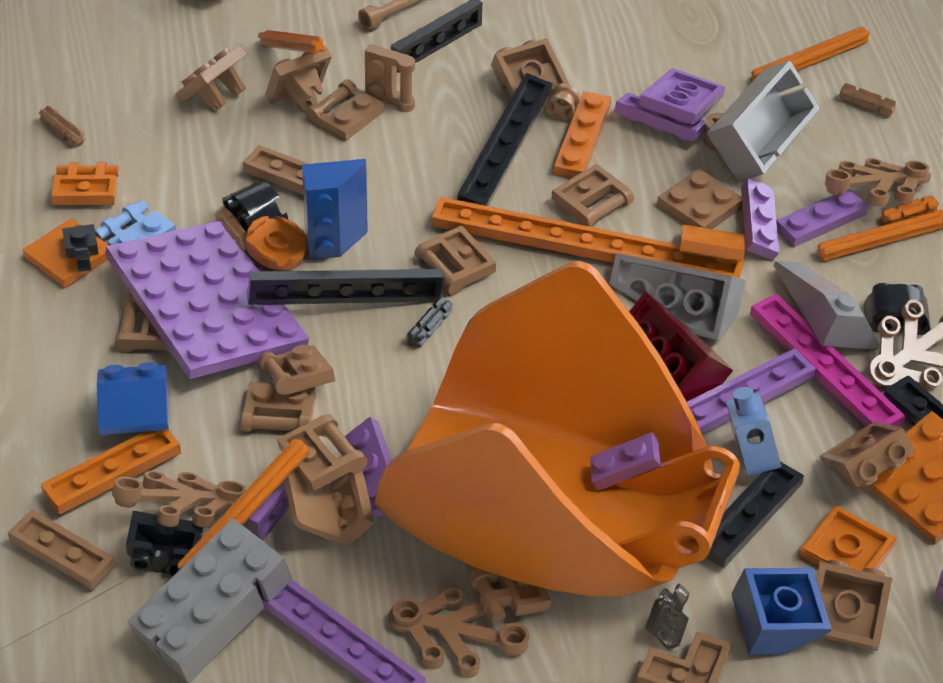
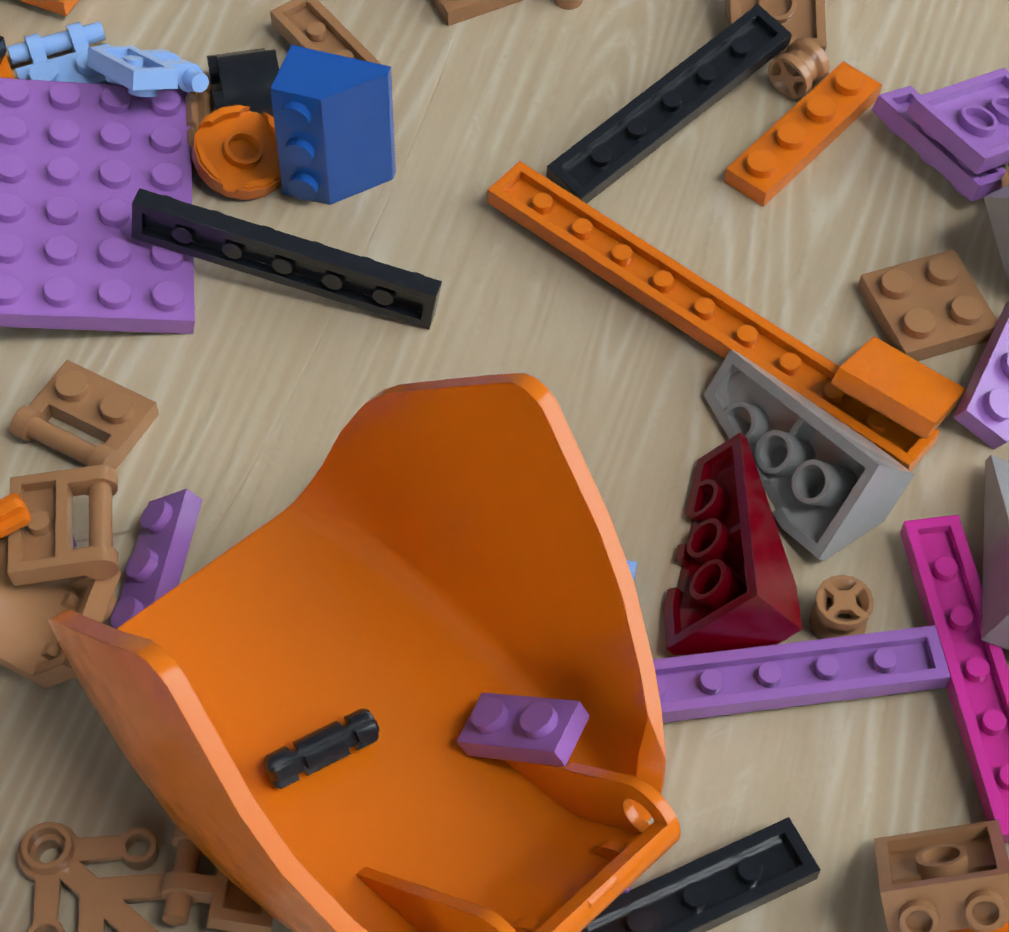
camera: 25 degrees right, 10 degrees up
(195, 213) = (146, 70): none -> light blue plate
(303, 362) = (154, 376): medium nougat plate -> none
(429, 322) = (387, 360): axle -> none
(462, 253) = (503, 265): medium nougat plate -> none
(586, 189) = (756, 224): medium nougat plate -> none
(743, 356) = (841, 596): none -> medium nougat wheel
(748, 421) = (771, 735): medium blue torso -> none

